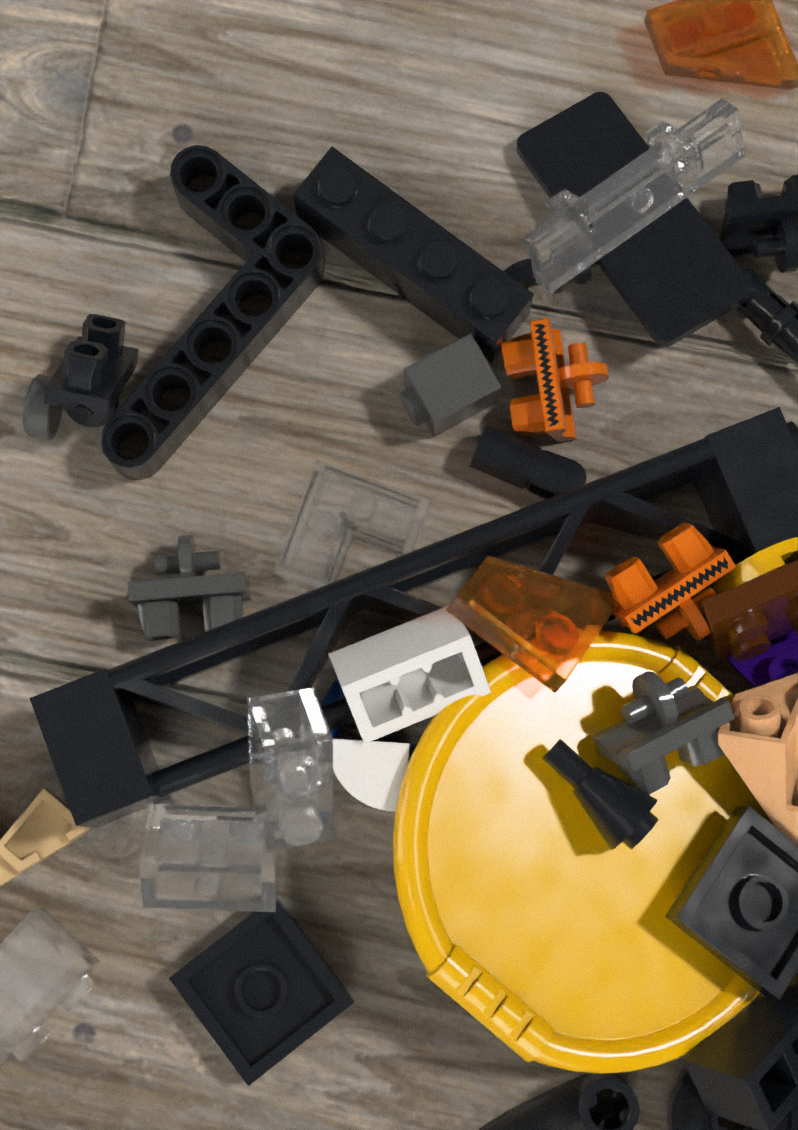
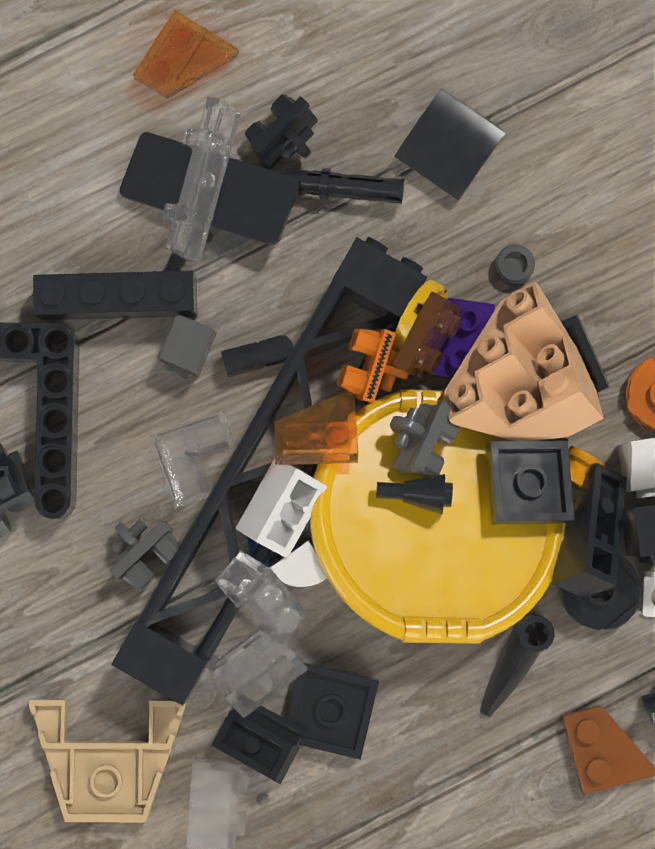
camera: 35 degrees left, 5 degrees up
(140, 957) = (260, 741): none -> black plate
(544, 355) = (221, 294): orange hips -> none

